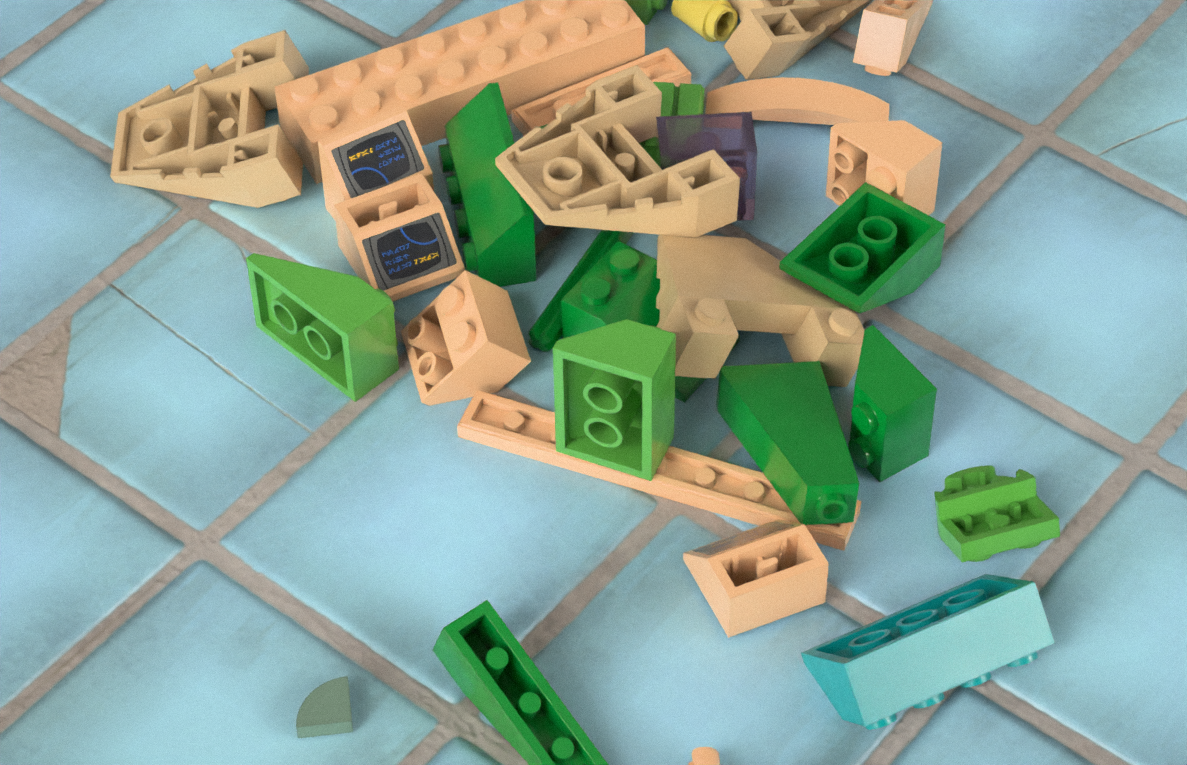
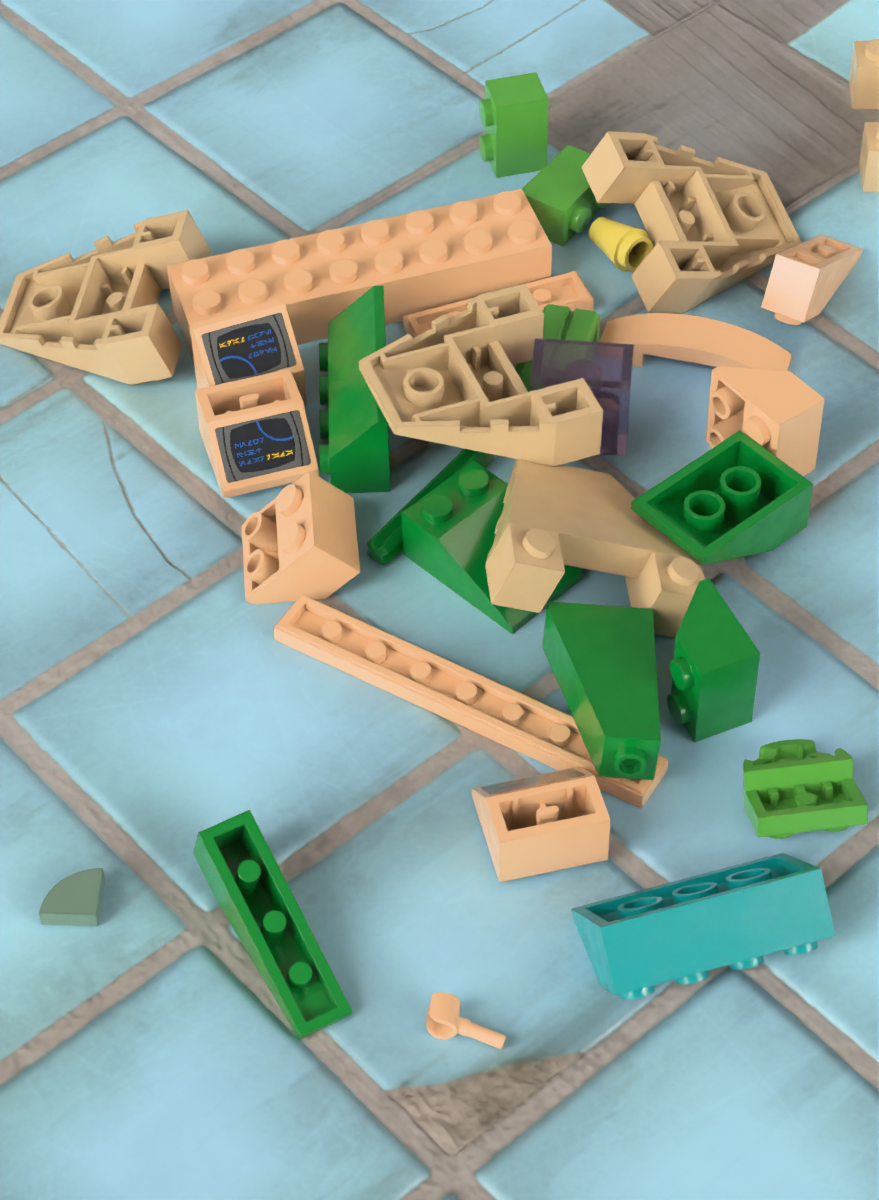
camera: 10 degrees right, 0 degrees up
(326, 321) = (164, 507): bright green slope -> none
(616, 396) = (428, 618): bright green slope -> none

